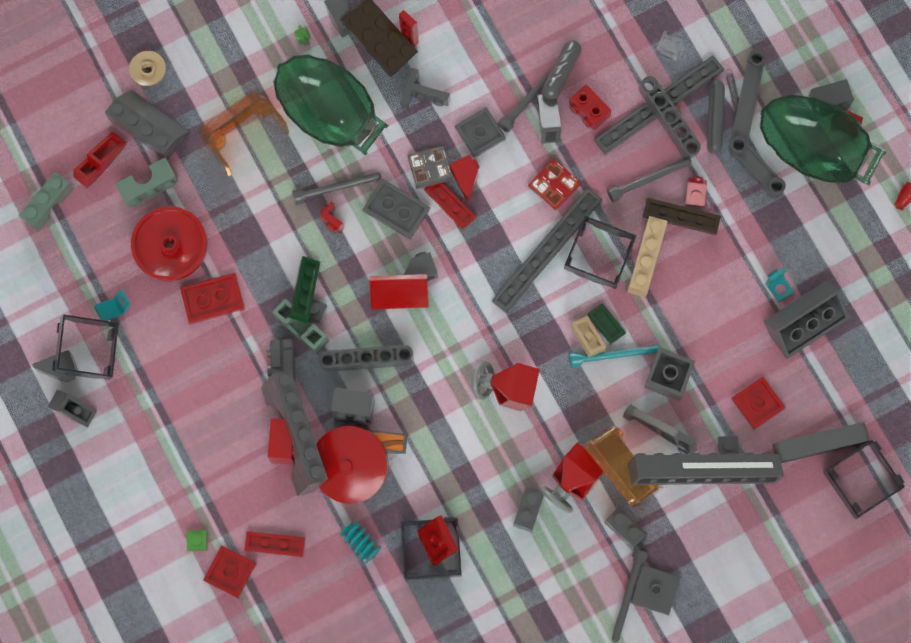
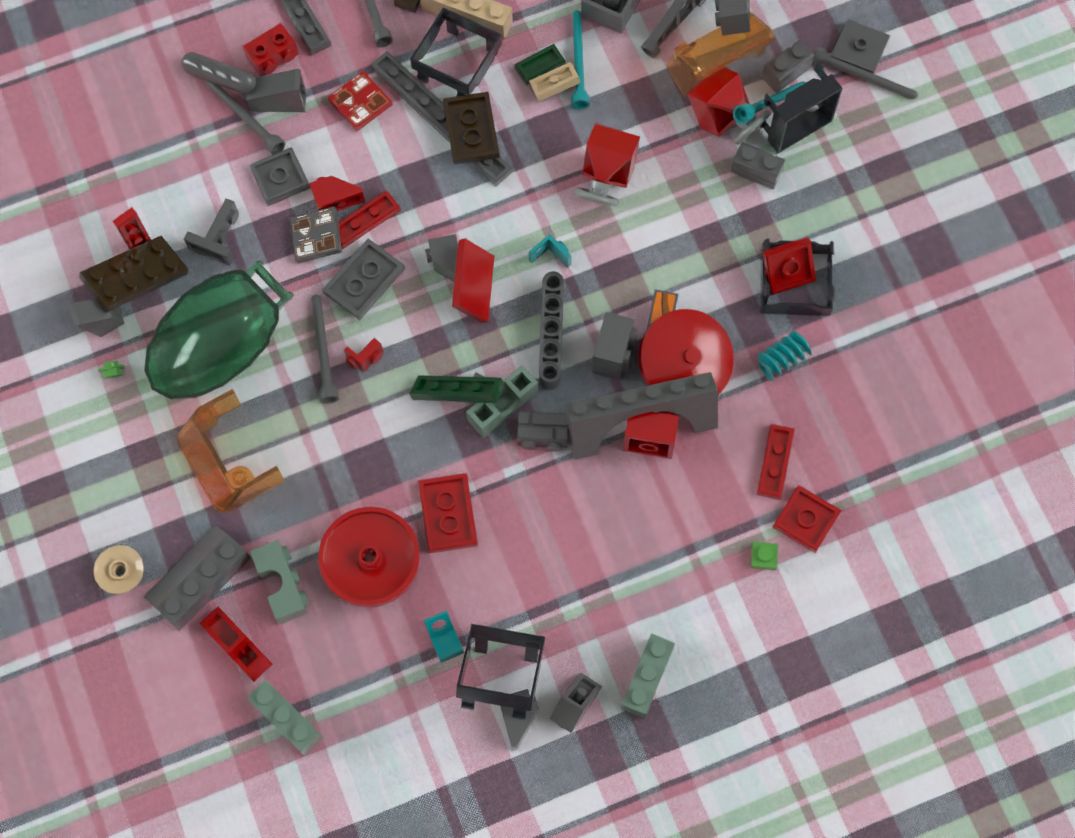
camera: 85 degrees left, 5 degrees down
(94, 458) = (647, 676): none -> sand green arch
(438, 355) = (555, 246): none -> teal bracket
(534, 273) = (471, 128): none -> dark brown plate
(560, 488) = (745, 112): none -> teal piece
(575, 539) = (792, 120): none -> black piece

